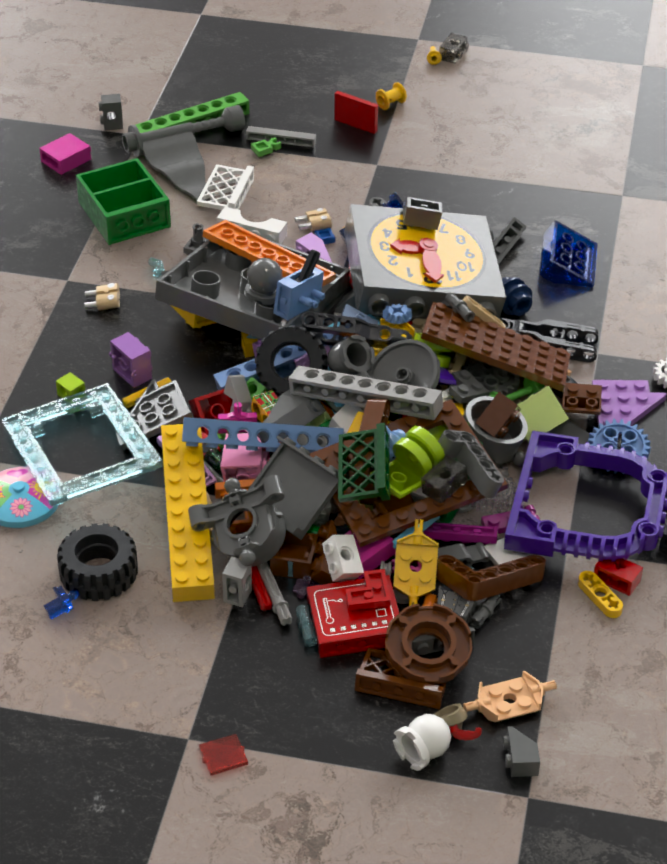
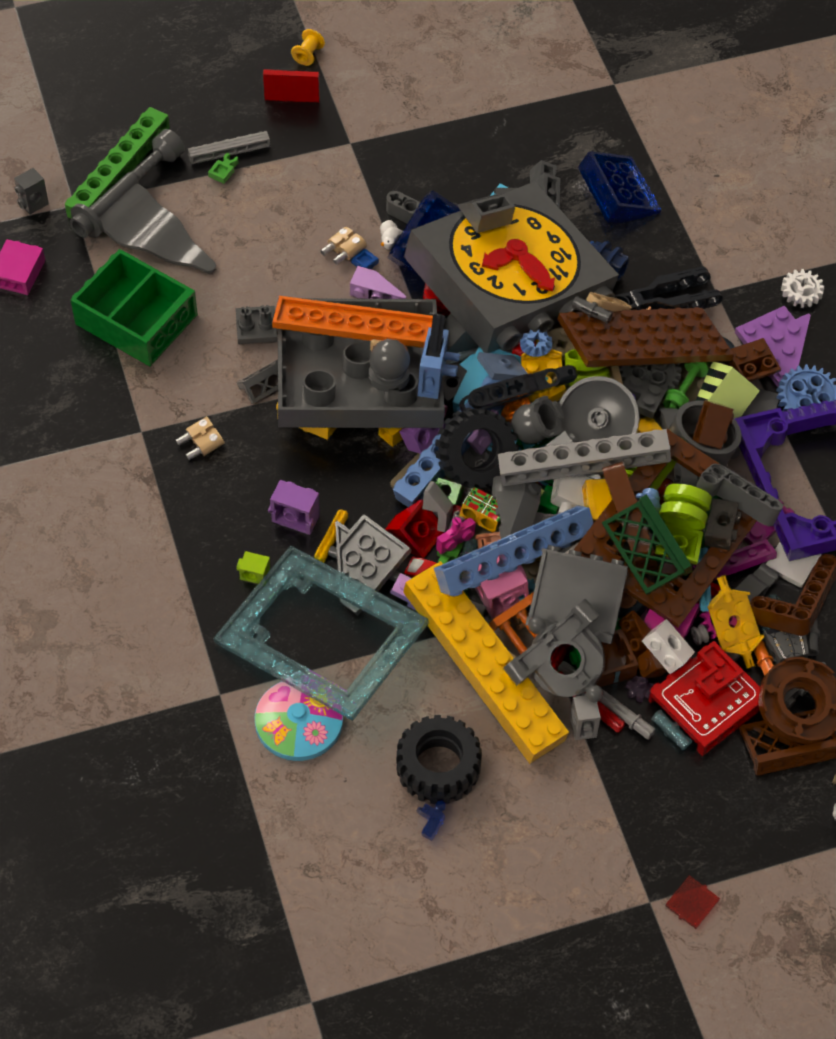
camera: 30 degrees left, 15 degrees up
(158, 264) = (227, 372): clear light blue arm -> none
(238, 191) = (239, 235): white fence -> none
(272, 229) = (265, 285): white arch -> none

